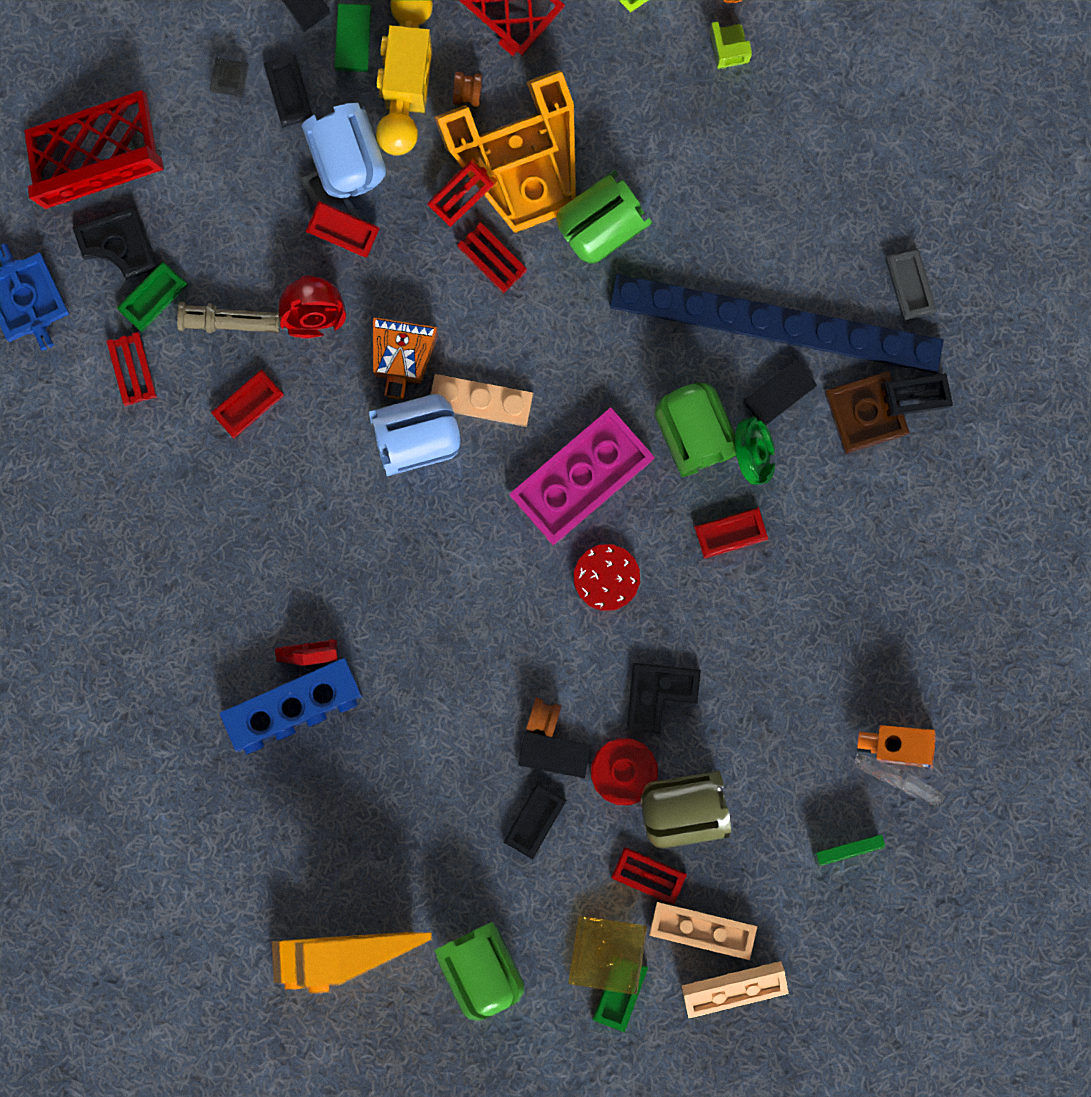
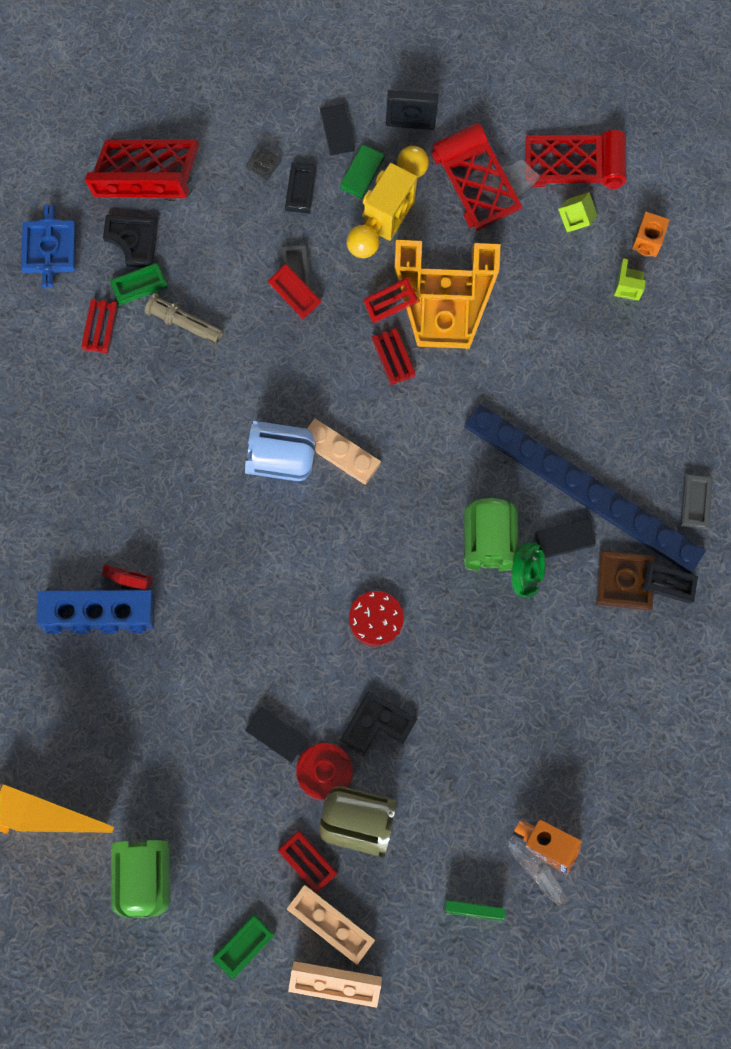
camera: 20 degrees right, 10 degrees down
(247, 404) = (169, 384): red tile -> none
(309, 306) = (246, 334): red cylinder -> none
(345, 151) = (320, 237): light blue cylinder -> none
(401, 353) = (297, 393): torso -> none
(467, 88) = (428, 234): dark orange wheel -> none
(535, 821) = (238, 779): black tile -> none
(544, 717) = (281, 701): dark orange wheel -> none
(581, 476) = (390, 536): dark pink plate -> none
(601, 219) = (485, 359): bright green cylinder -> none
(607, 955) = (246, 910): clear yellow plate -> none
(731, 533) = (484, 625): red tile -> none

